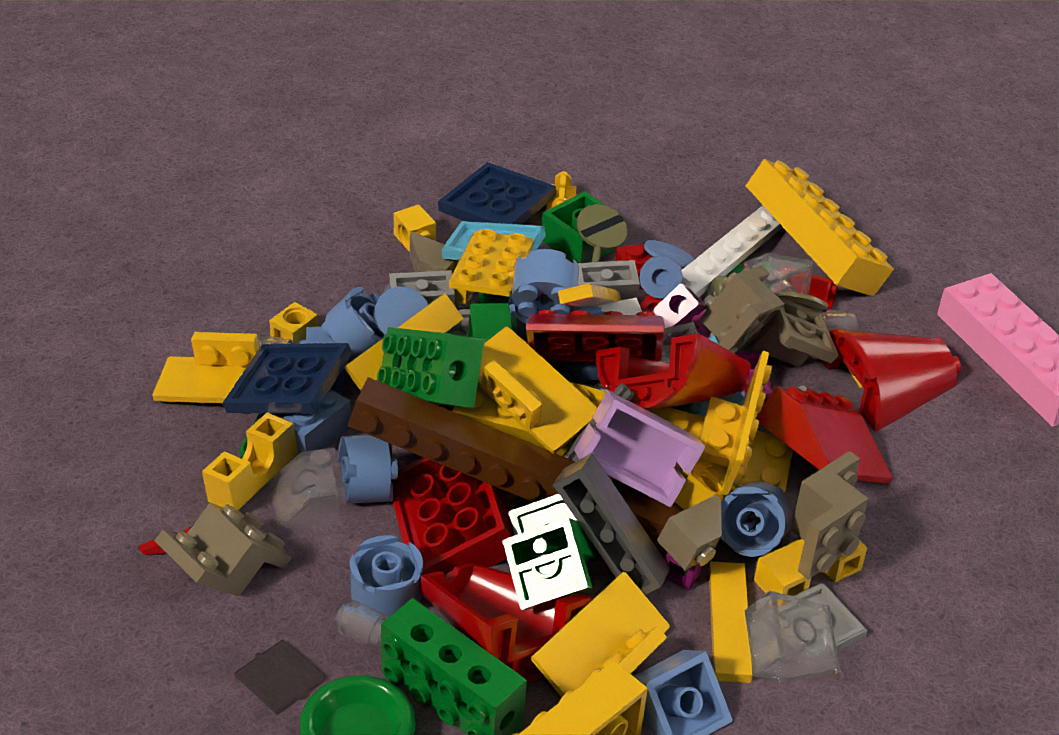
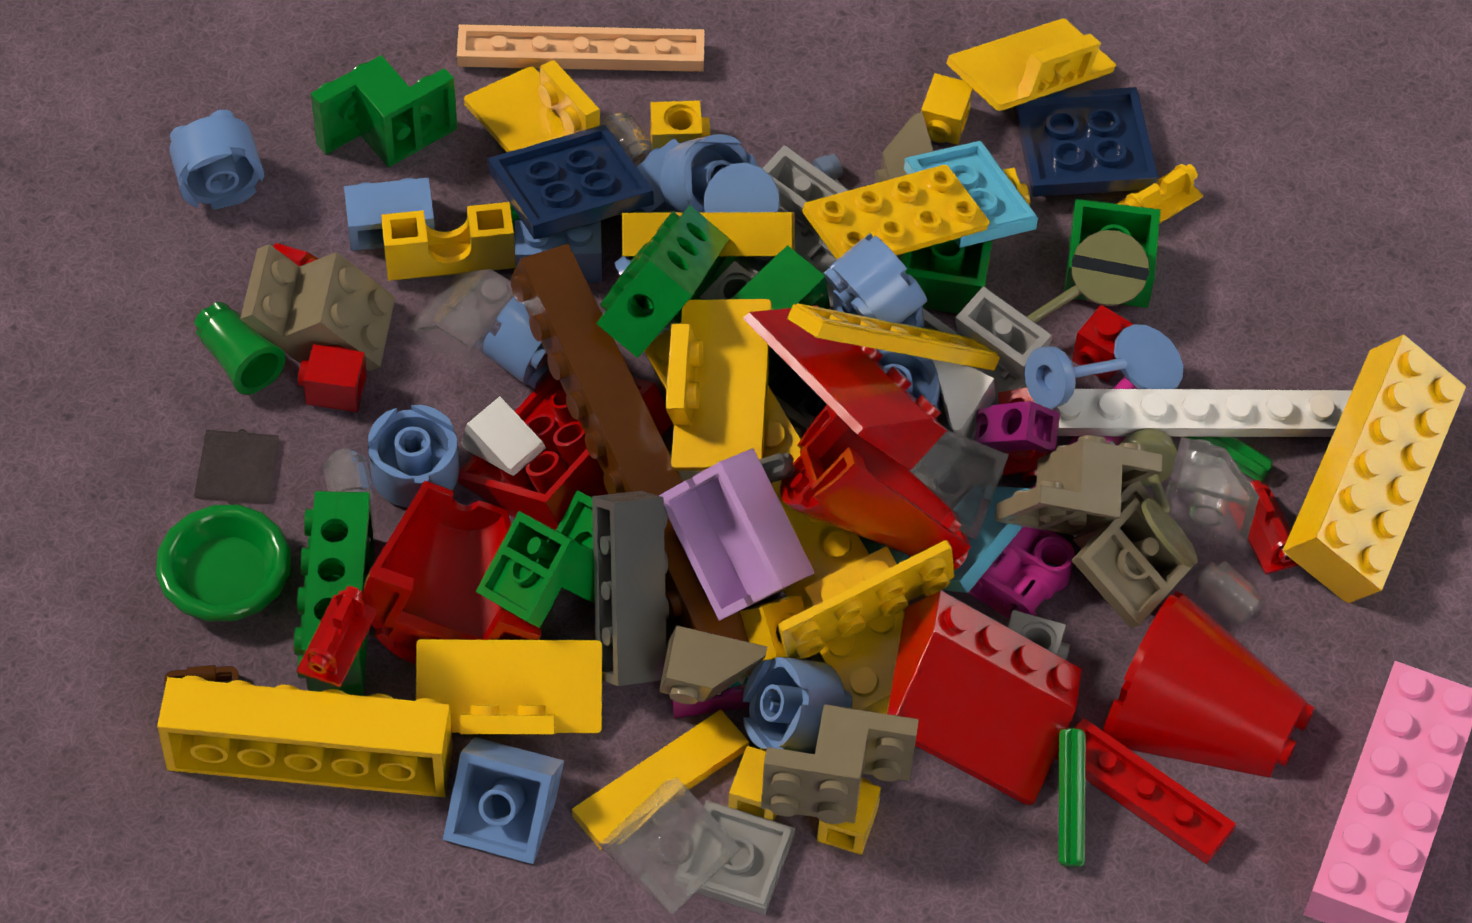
camera: 50 degrees right, 15 degrees up
(51, 524) = (215, 160): none -> medium blue brick
(121, 427) = (384, 110): none -> green bracket
(177, 333) = (581, 47): none -> light nougat plate
(181, 483) = (370, 200): none -> medium blue brick
(198, 610) = (240, 350): none -> green plant
(282, 577) = (333, 377): none -> red brick
(424, 525) = (502, 438): none -> white slope
(432, 180) = (1031, 64): none -> yellow bracket
(512, 678) = (338, 637): none -> red hinge
(912, 456) = (1071, 798): none -> green axle
(931, 429) = (1153, 795): none -> red plate

